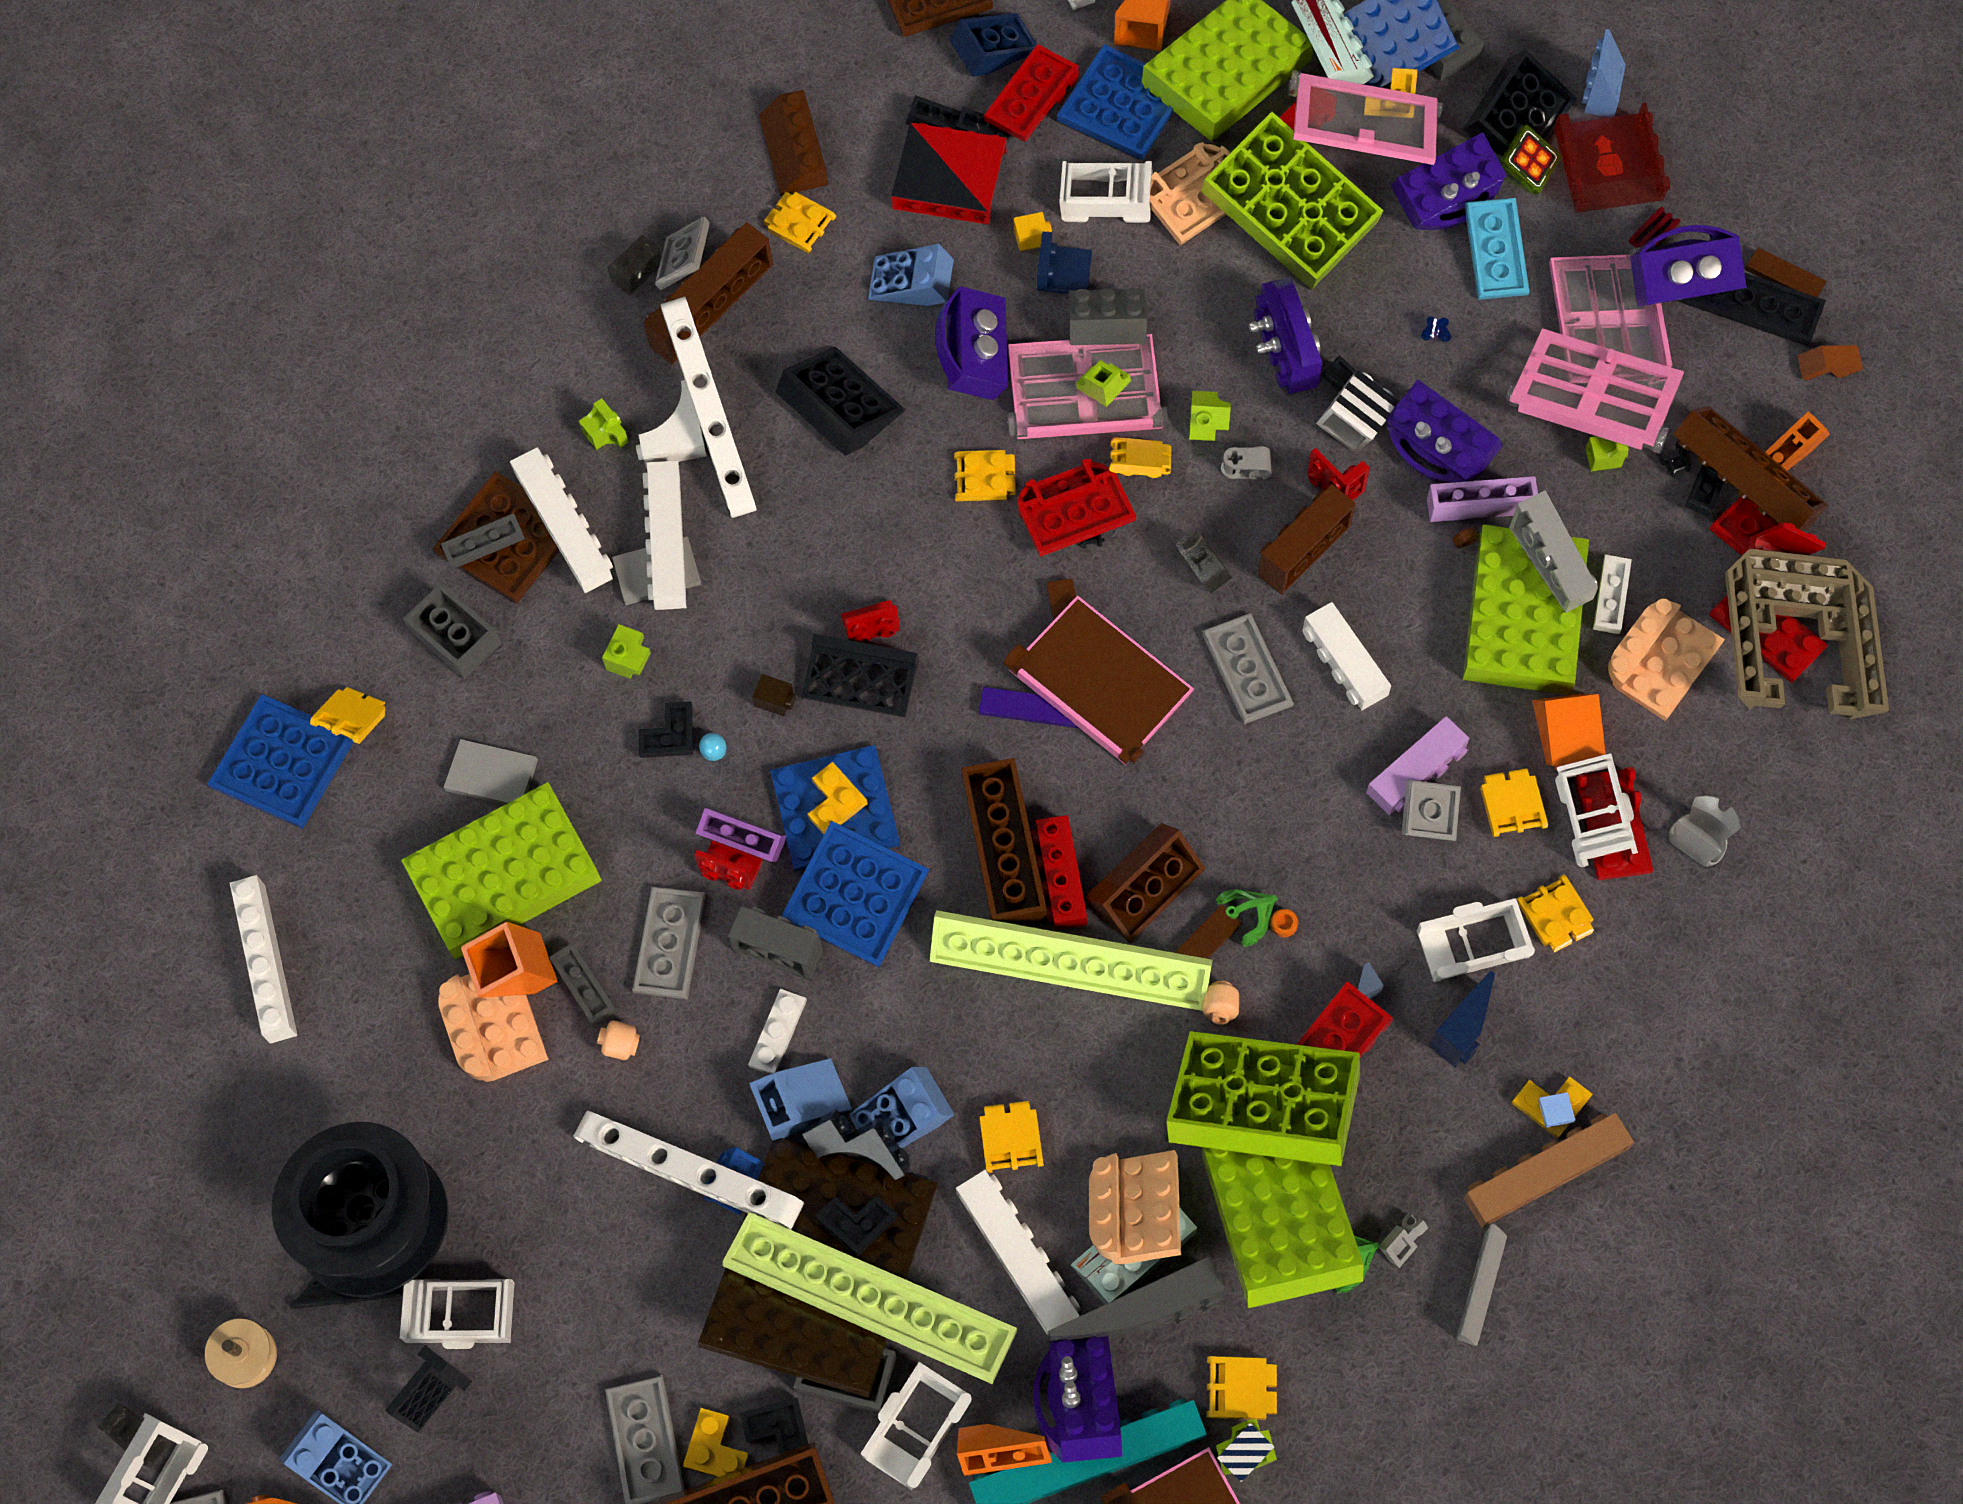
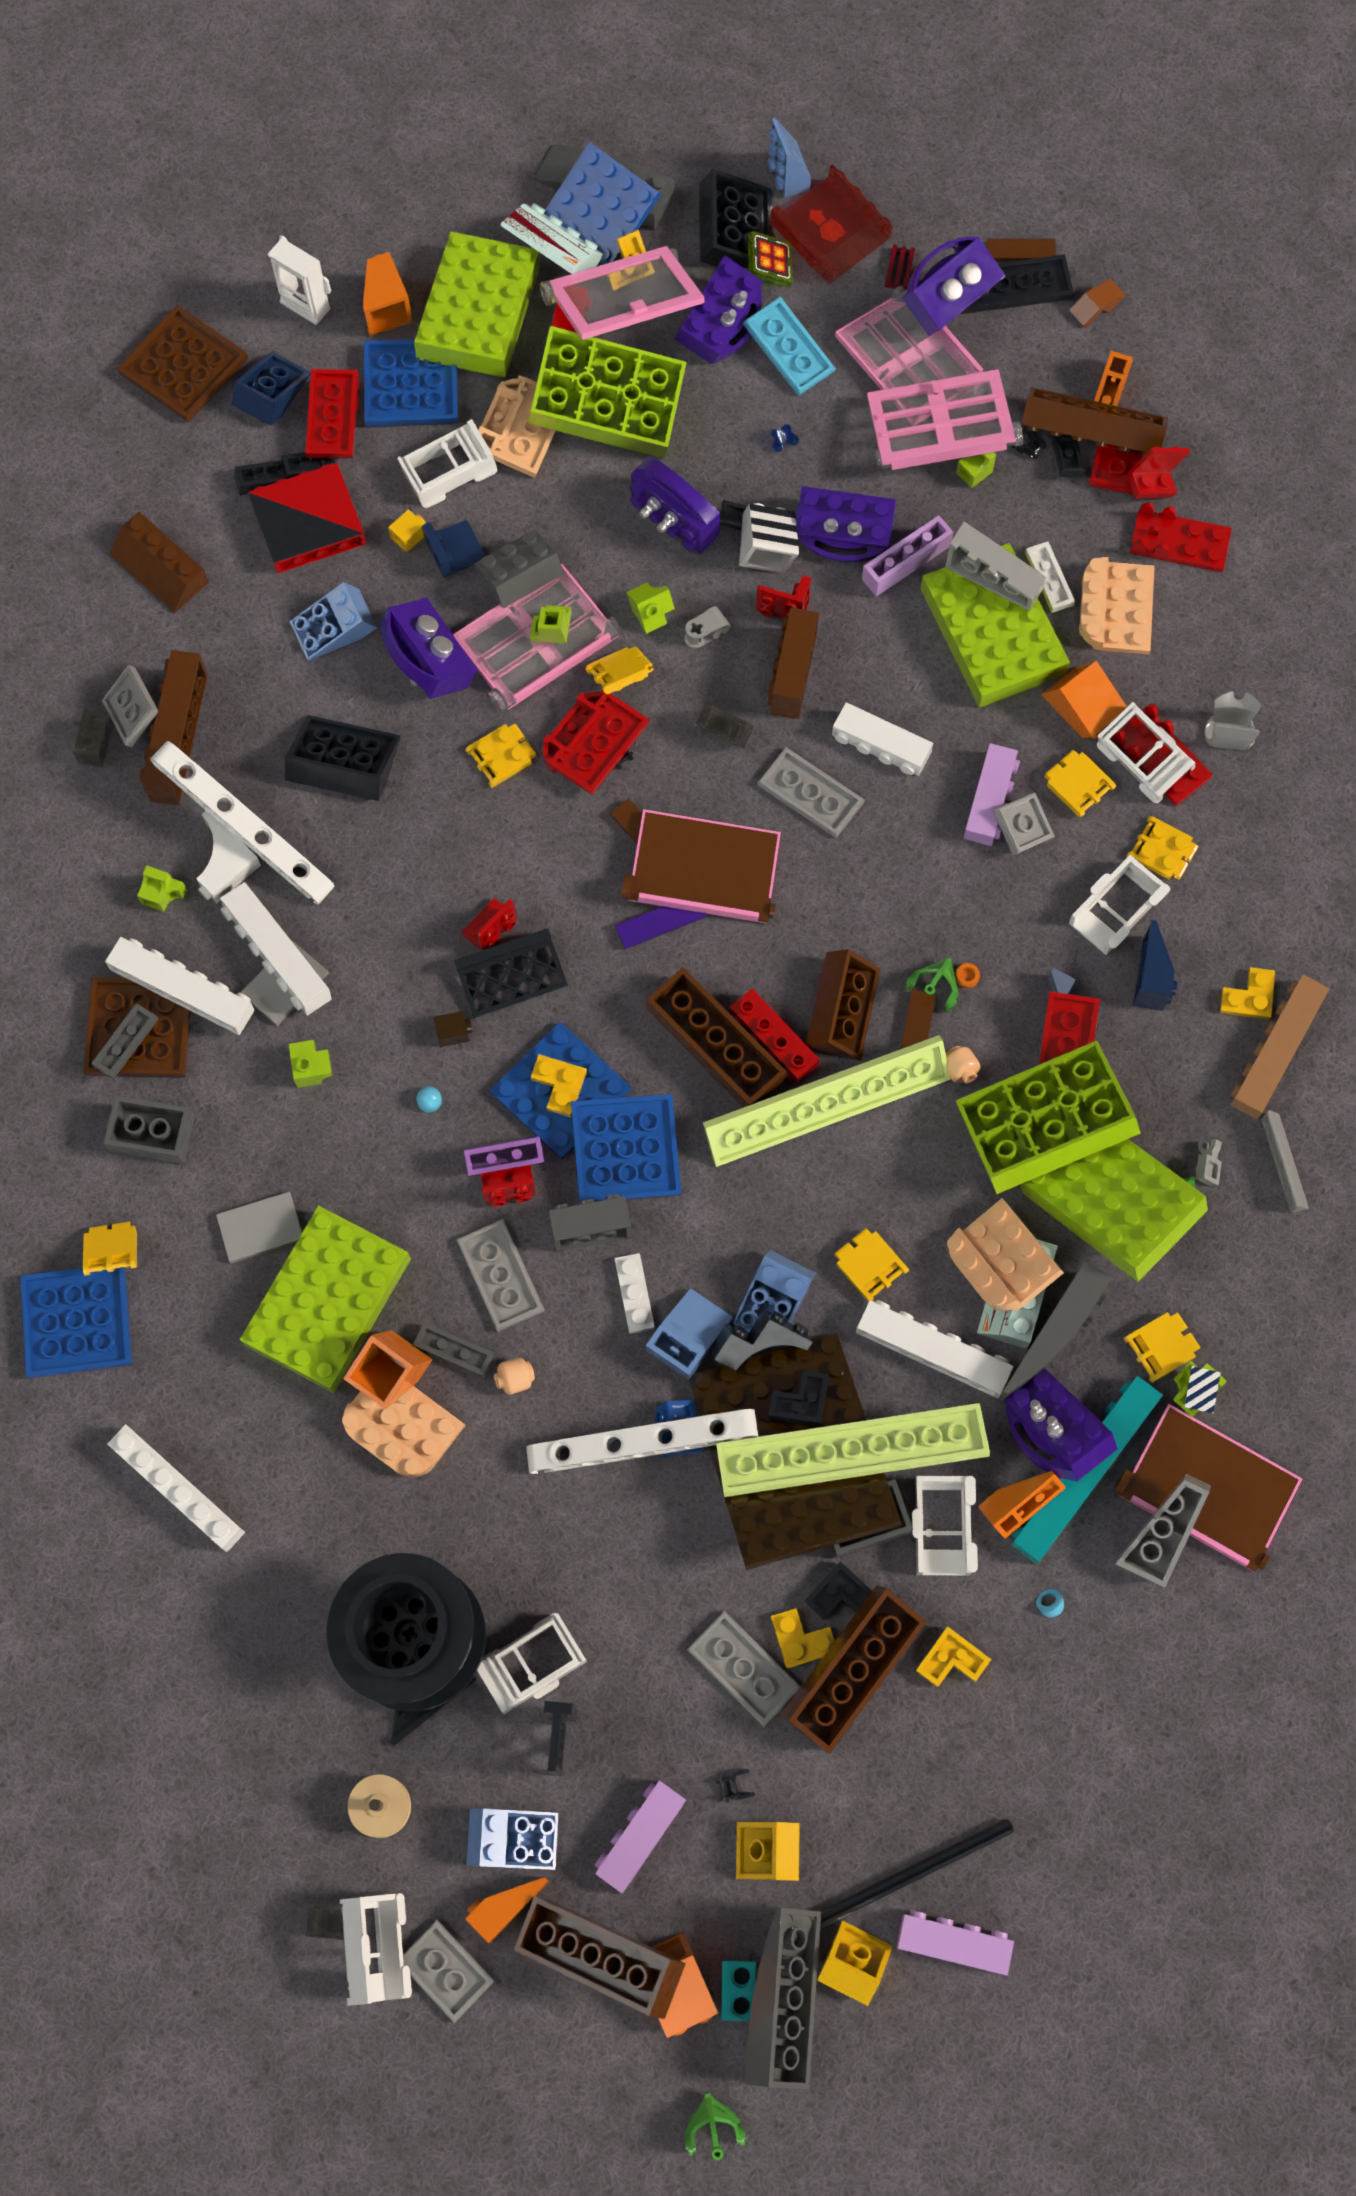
camera: 35 degrees left, 5 degrees up
(672, 740) = (394, 1108): black plate -> none
(798, 220) = (203, 625): yellow plate -> none
(1466, 537) = (912, 593): reddish brown tile -> none
(1556, 1110) = (1259, 997): light blue tile -> none
(1811, 588) = (1217, 486): dark tan slope -> none

